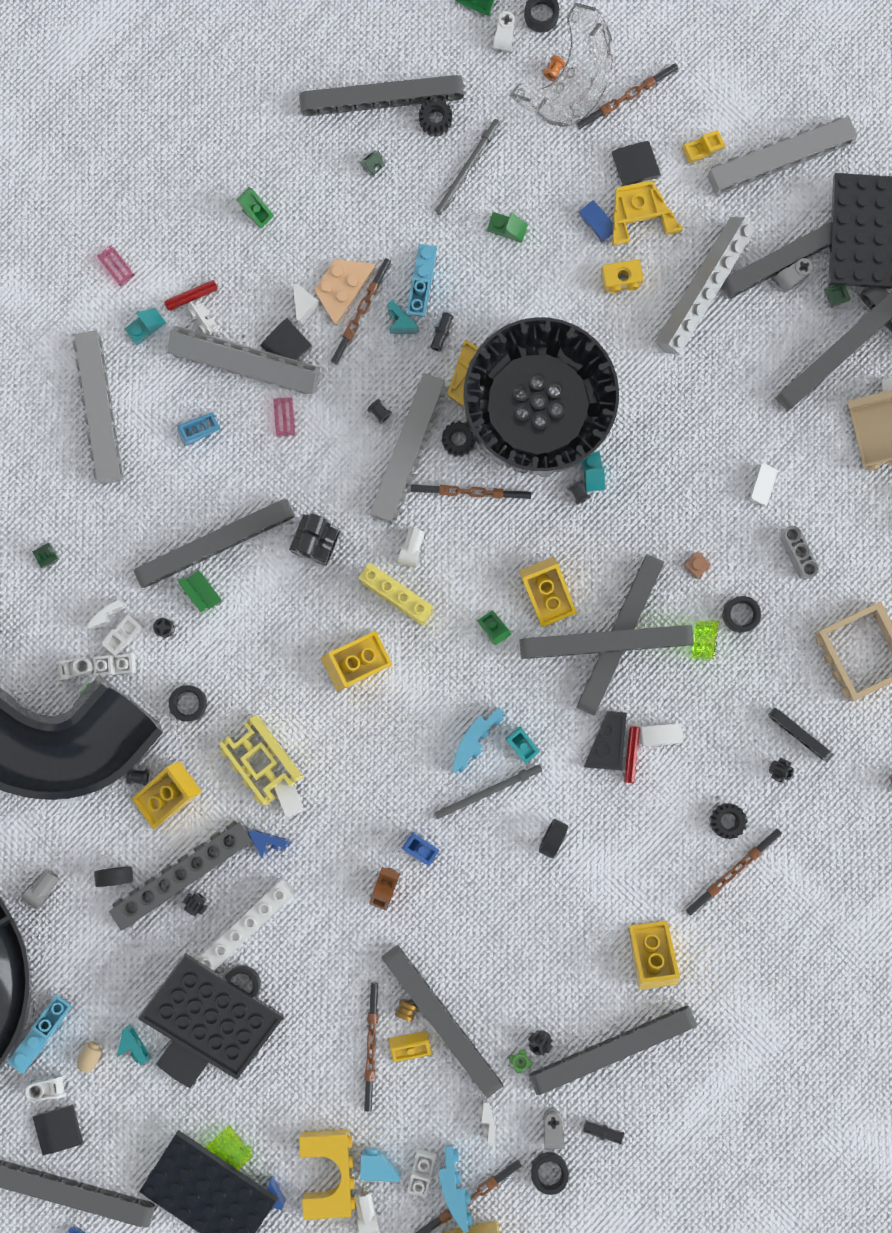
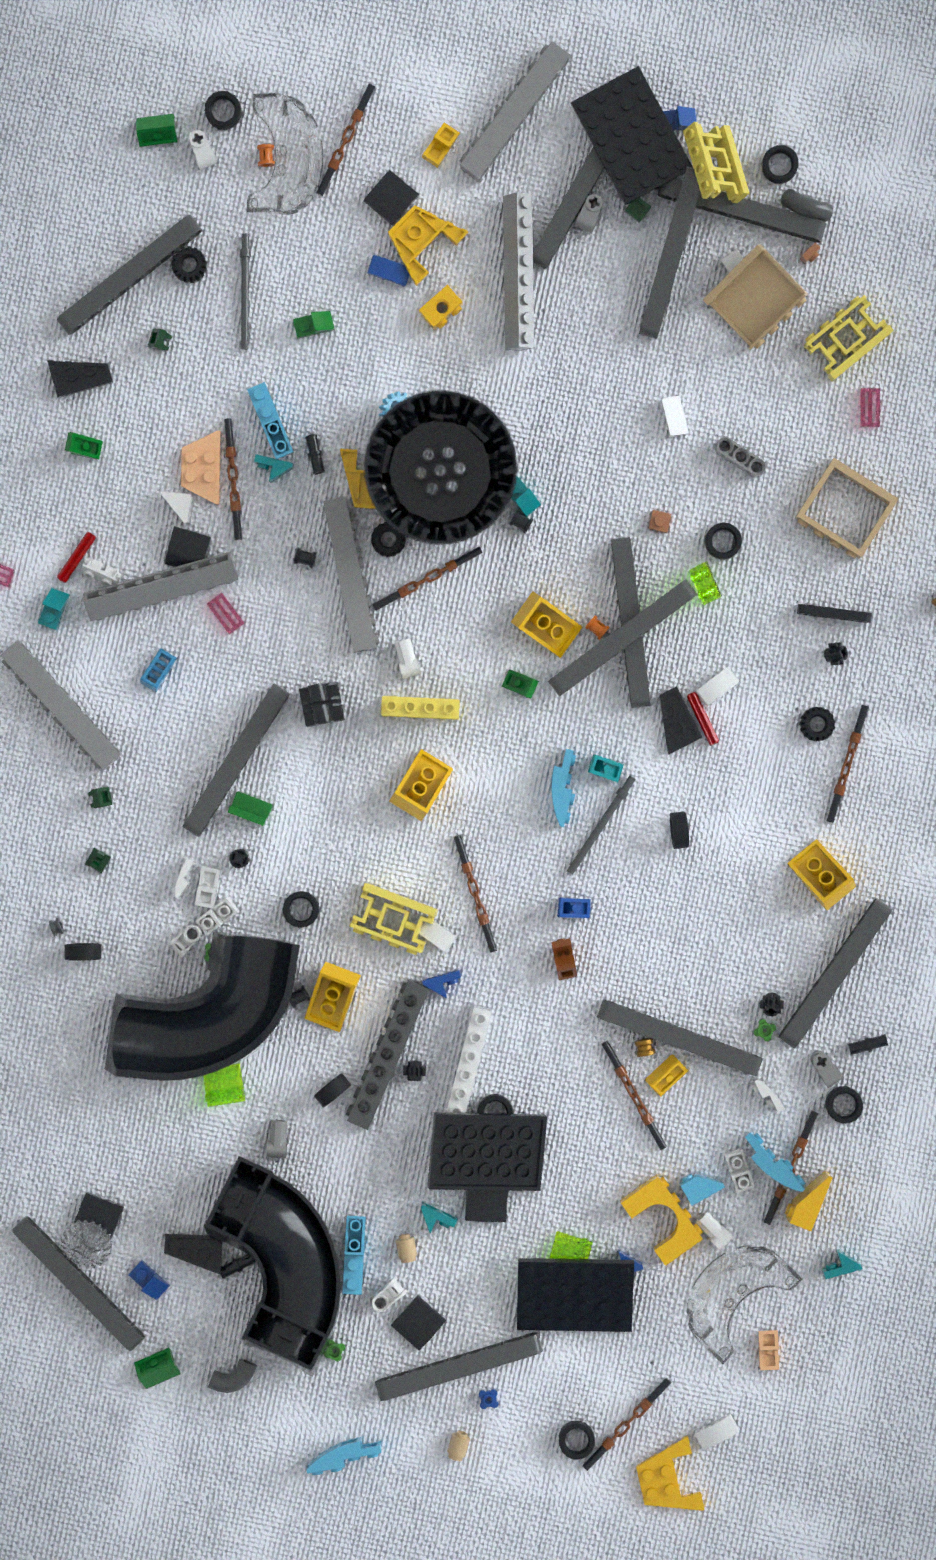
camera: 35 degrees left, 5 degrees up
(26, 814) = (224, 1086): none -> clear neon green hinge
(81, 504) = (101, 797): none -> dark green tile
(286, 151) = (77, 376): none -> black wing
(350, 758) = (467, 869): none -> piece
(589, 620) = (597, 627): none -> orange bush

